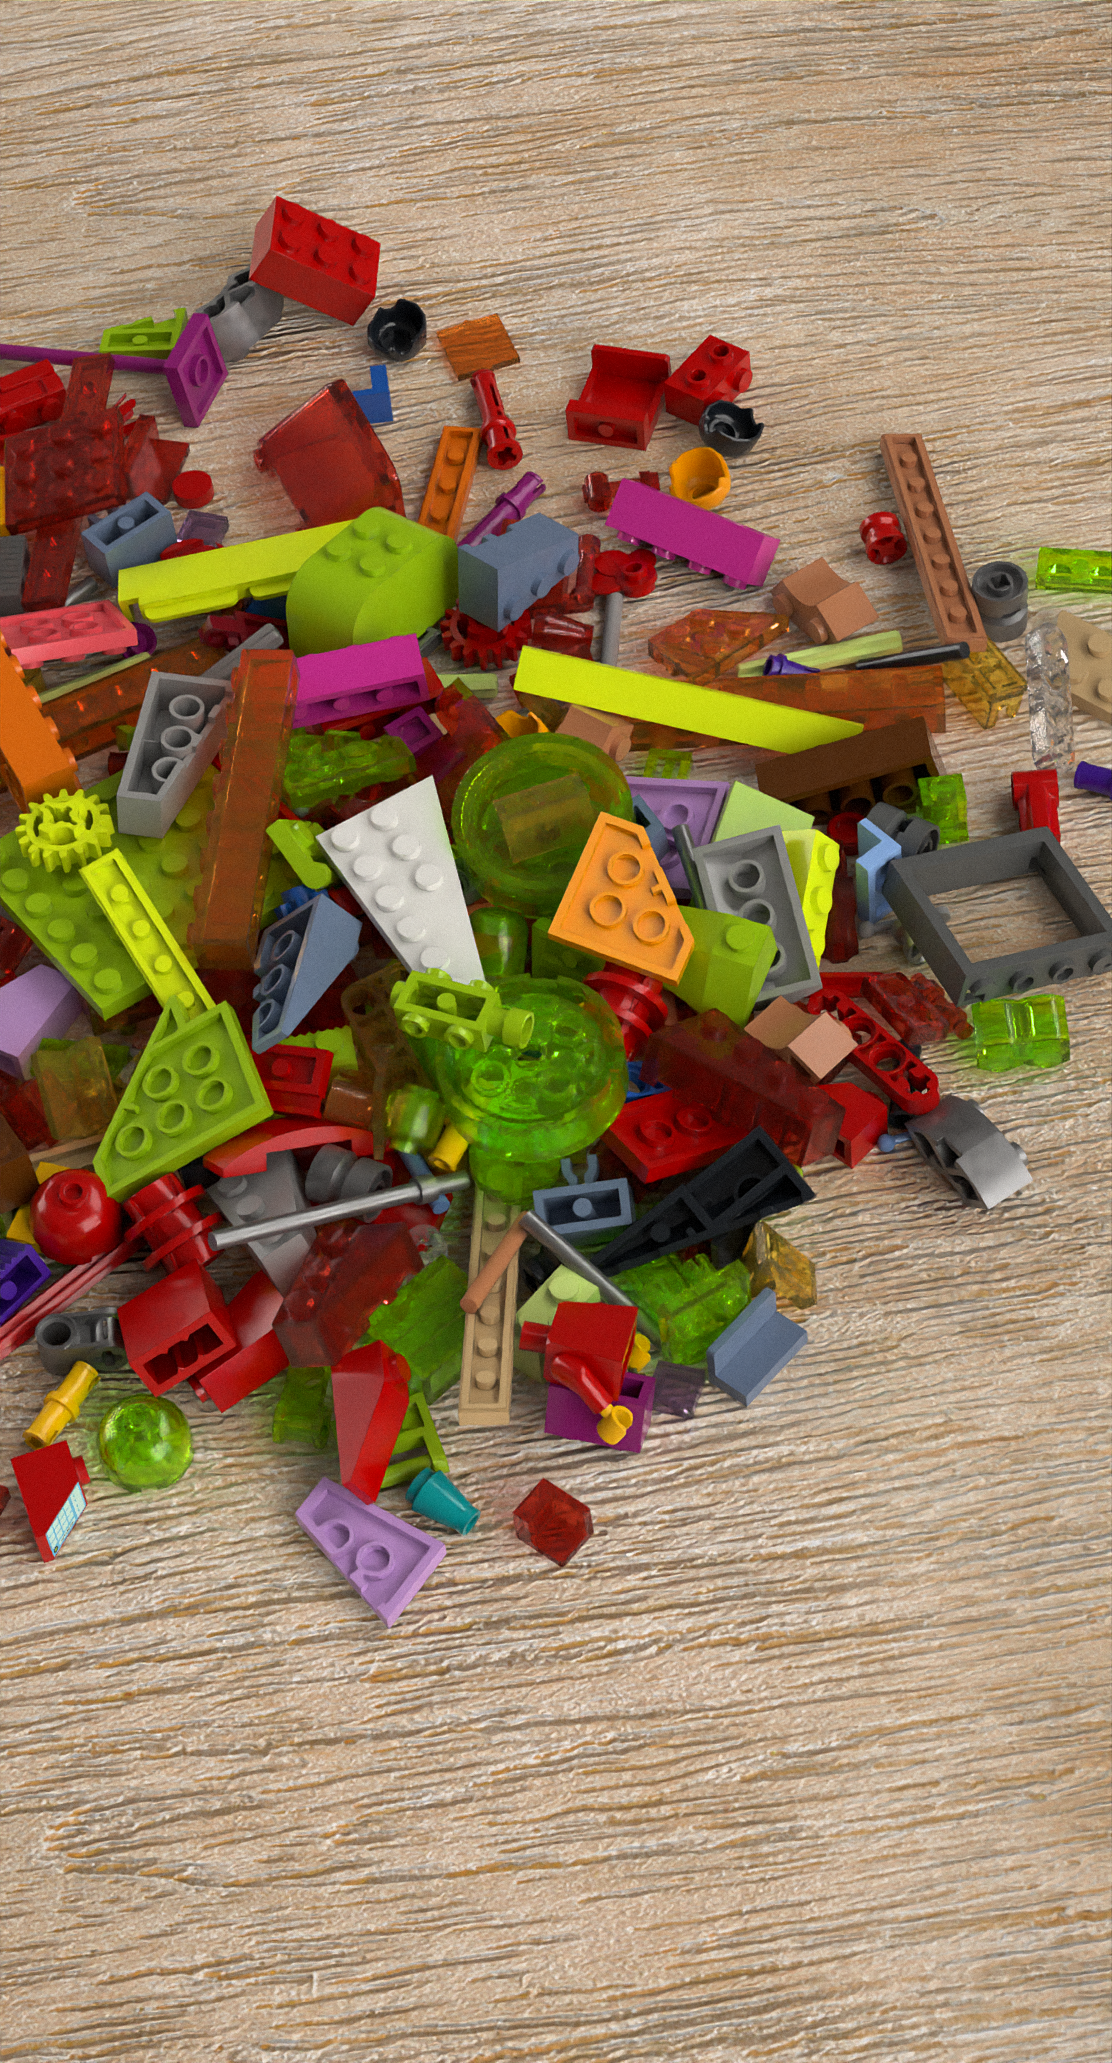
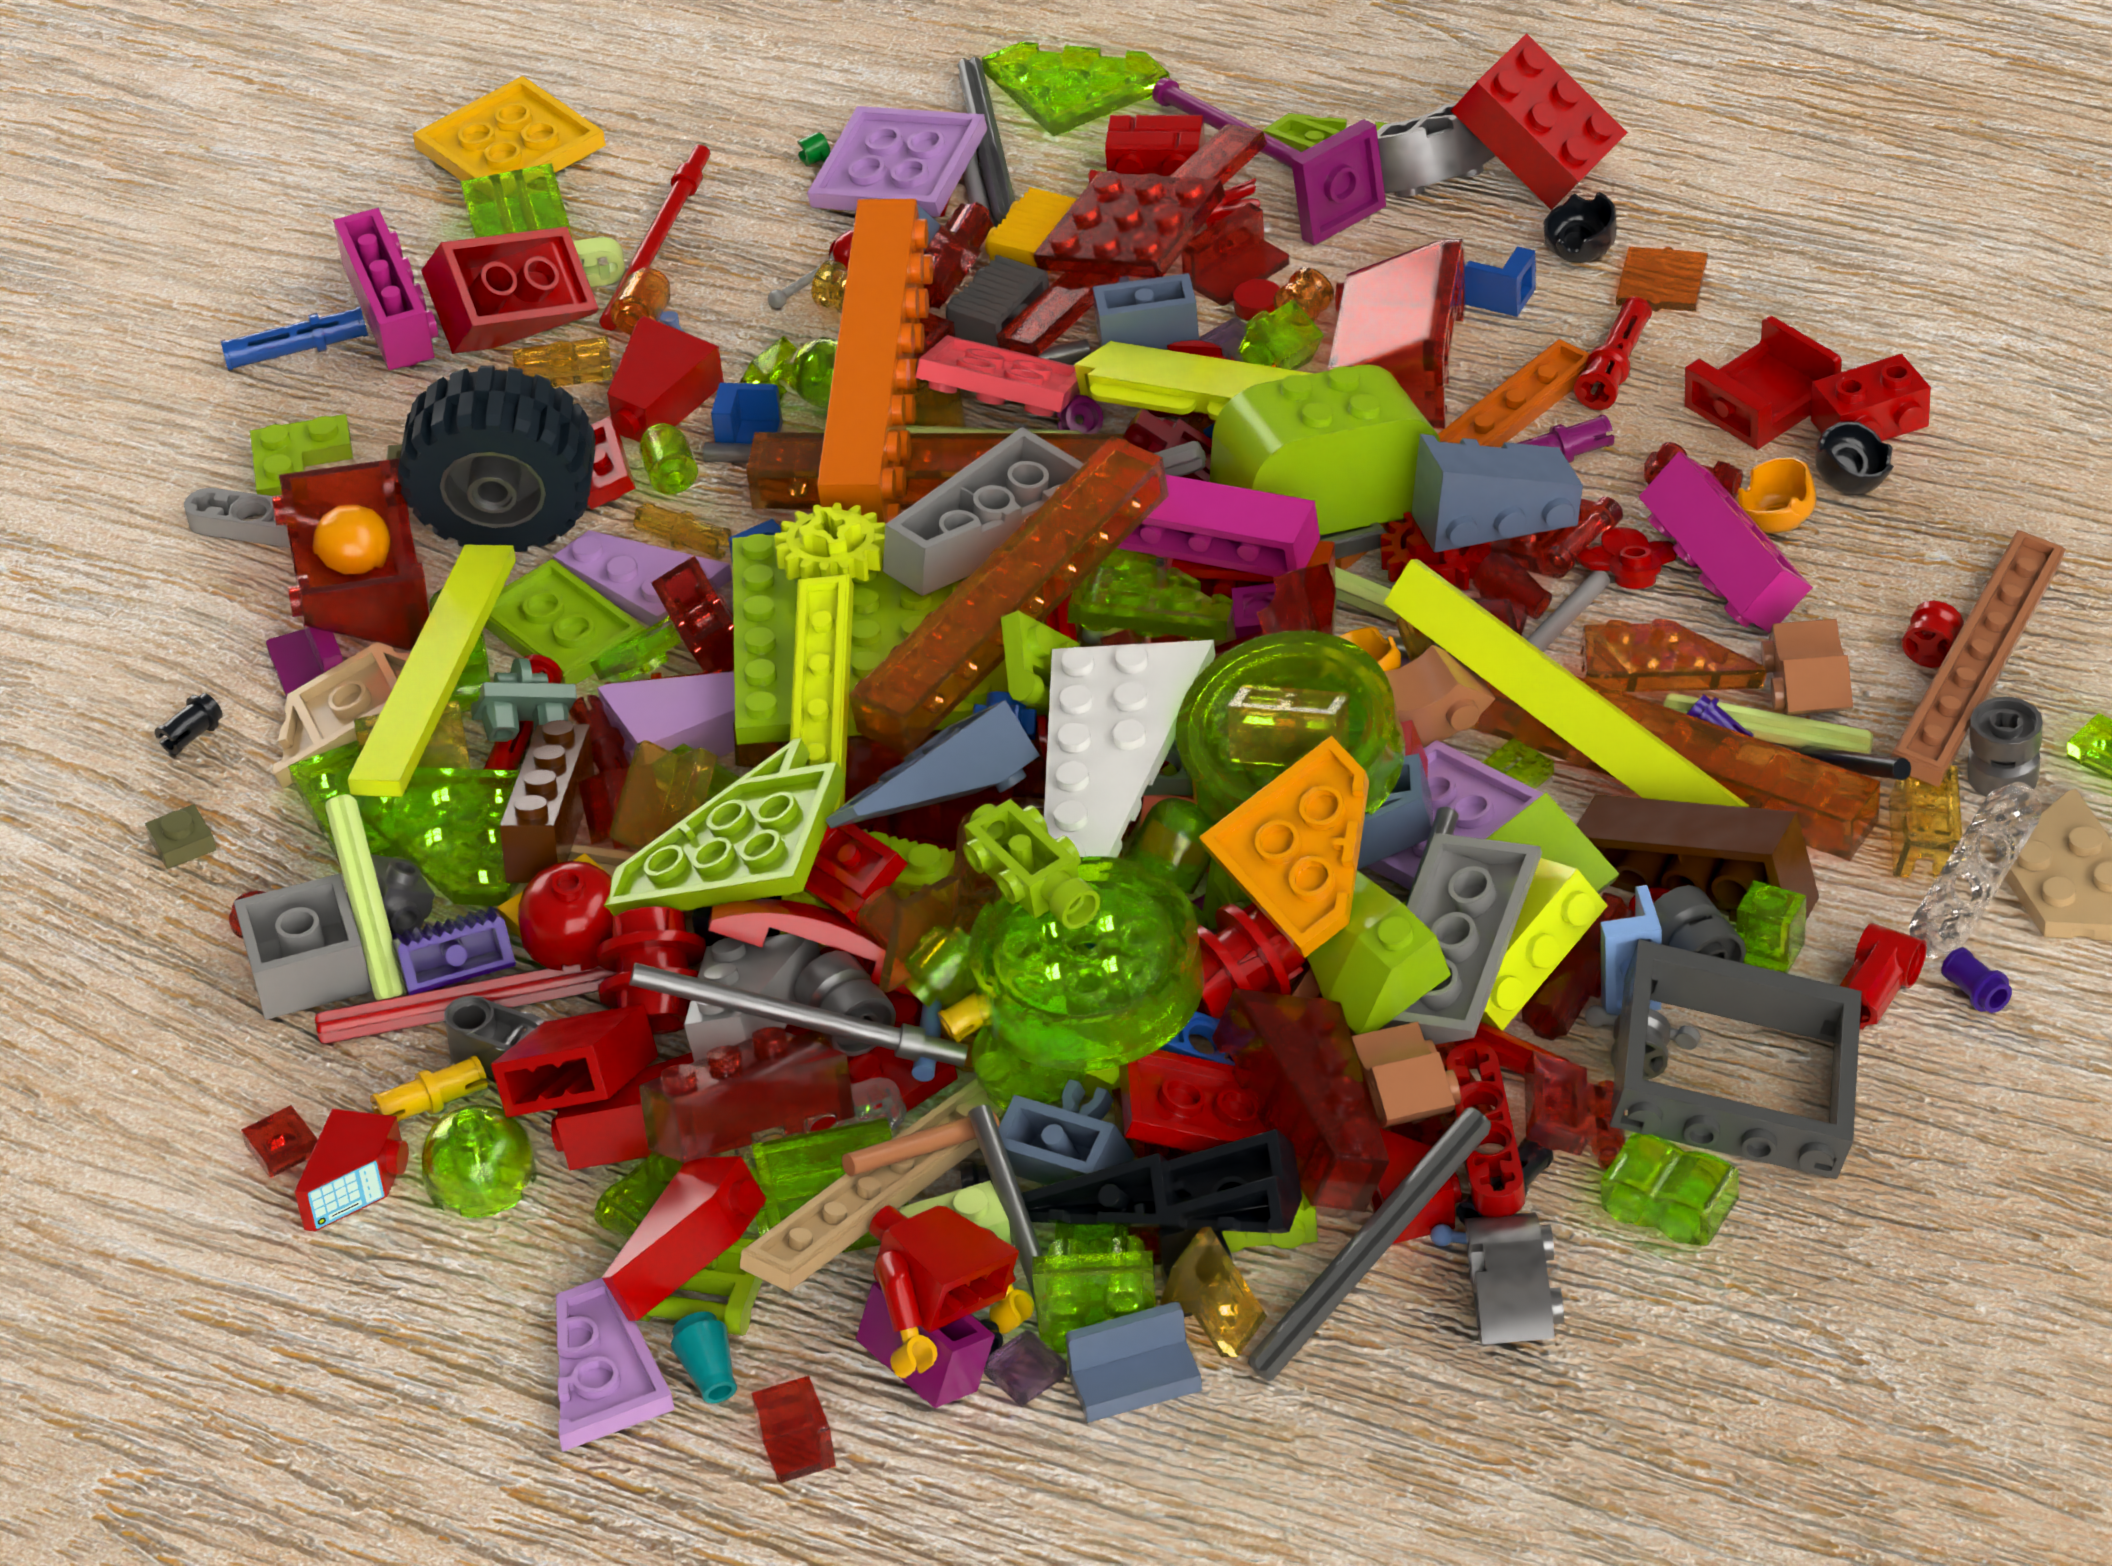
camera: 30 degrees right, 10 degrees down
(232, 473) = (1309, 290): none -> clear orange wheel
(245, 514) = (1281, 338): none -> clear neon green brick
(860, 1176) = (1369, 1244): none -> dark grey axle

